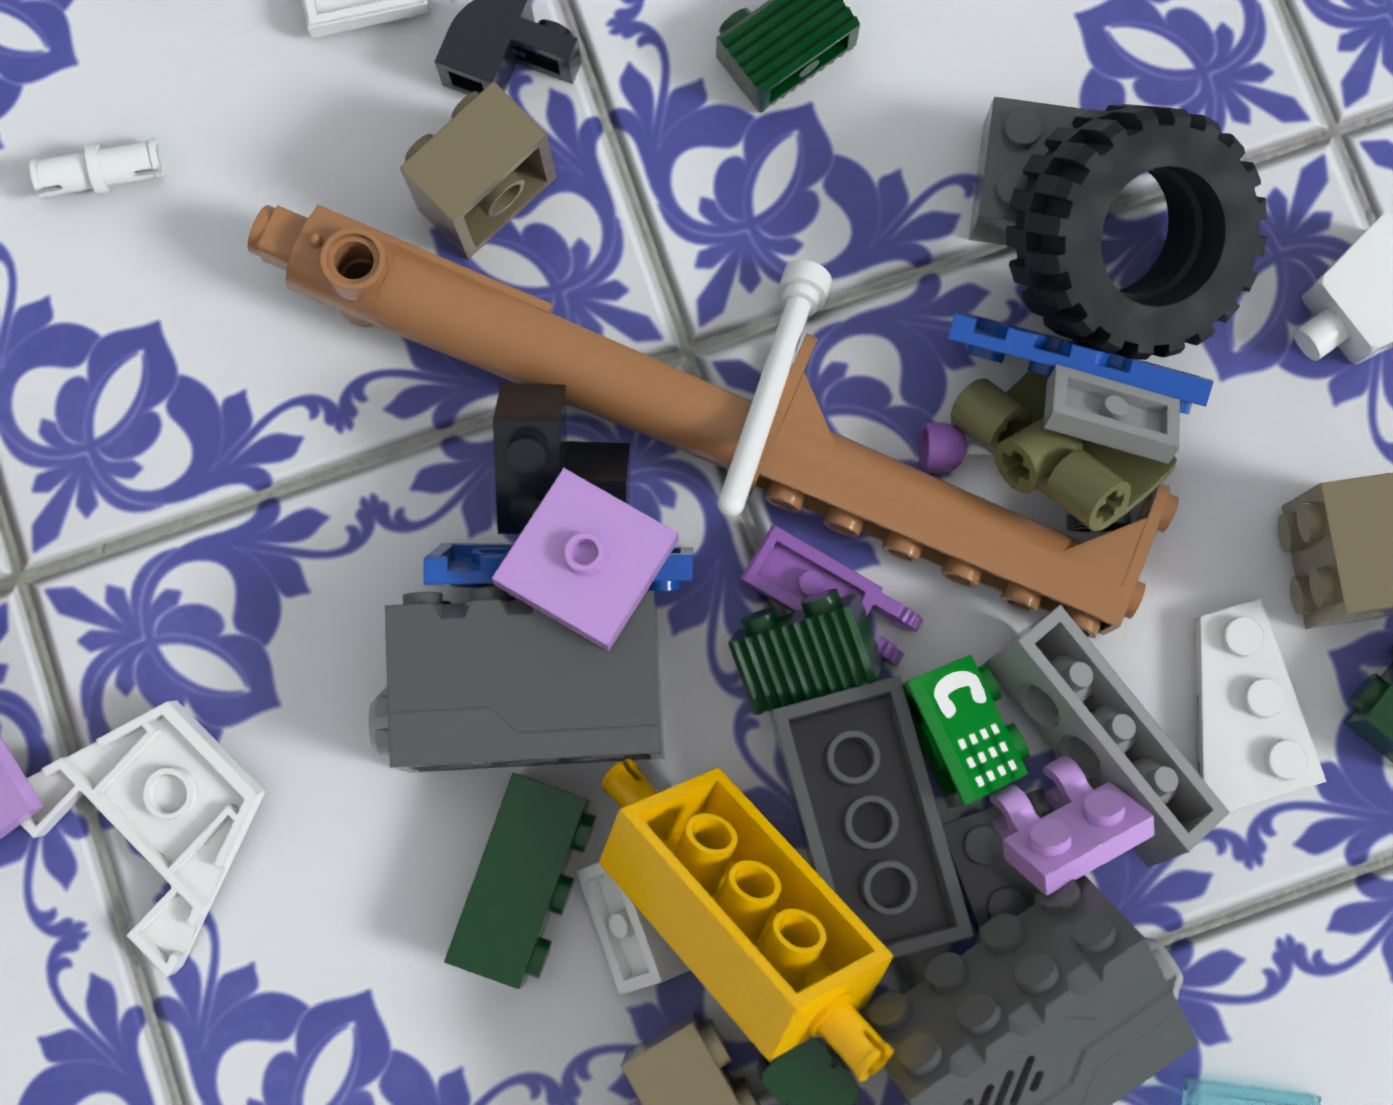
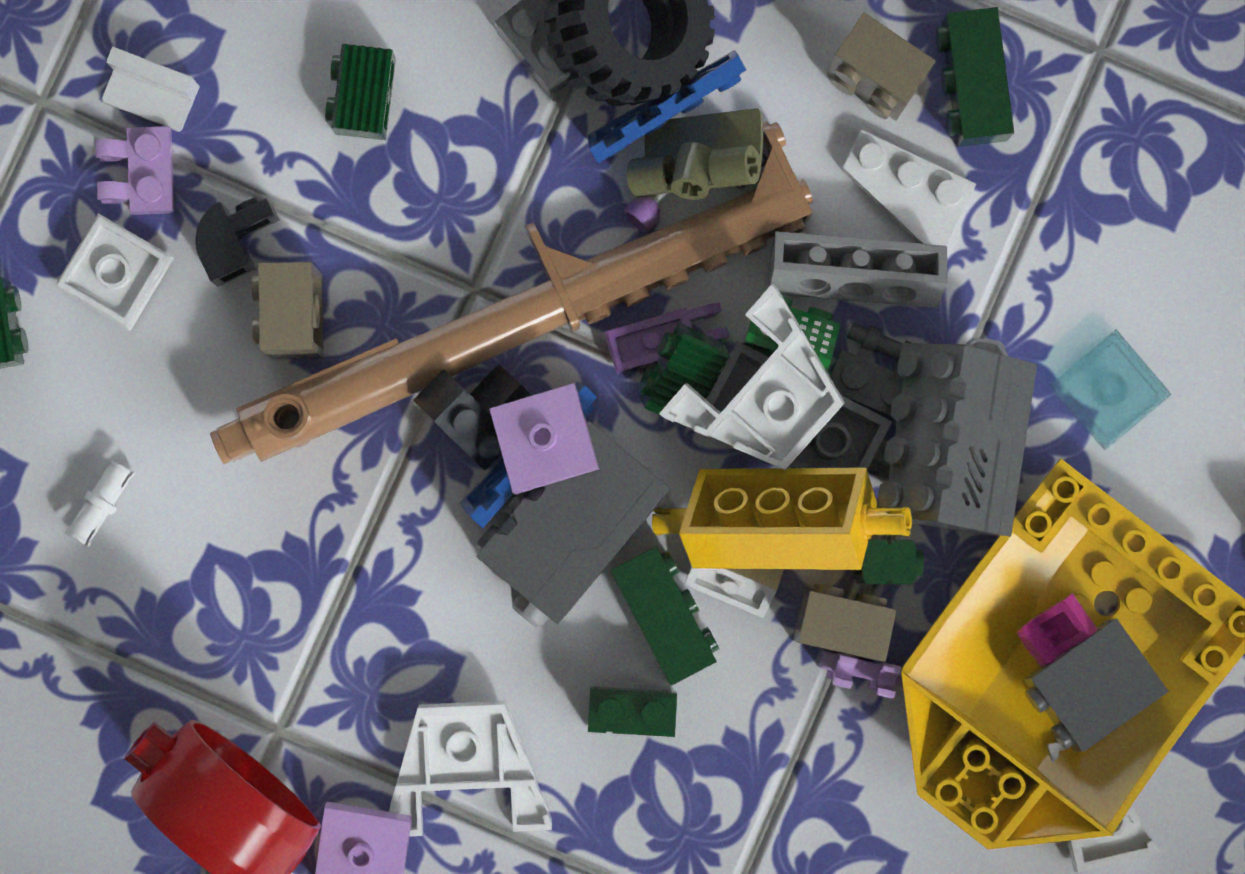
camera: 50 degrees left, 5 degrees up
(378, 944) = (632, 711): none -> dark green brick
(802, 293) = (501, 207): white piece -> none
(872, 788) = (779, 405): none -> white wing
(1074, 839) = (891, 330): lavender plate -> none
(1112, 414) = (708, 119): light grey plate -> none

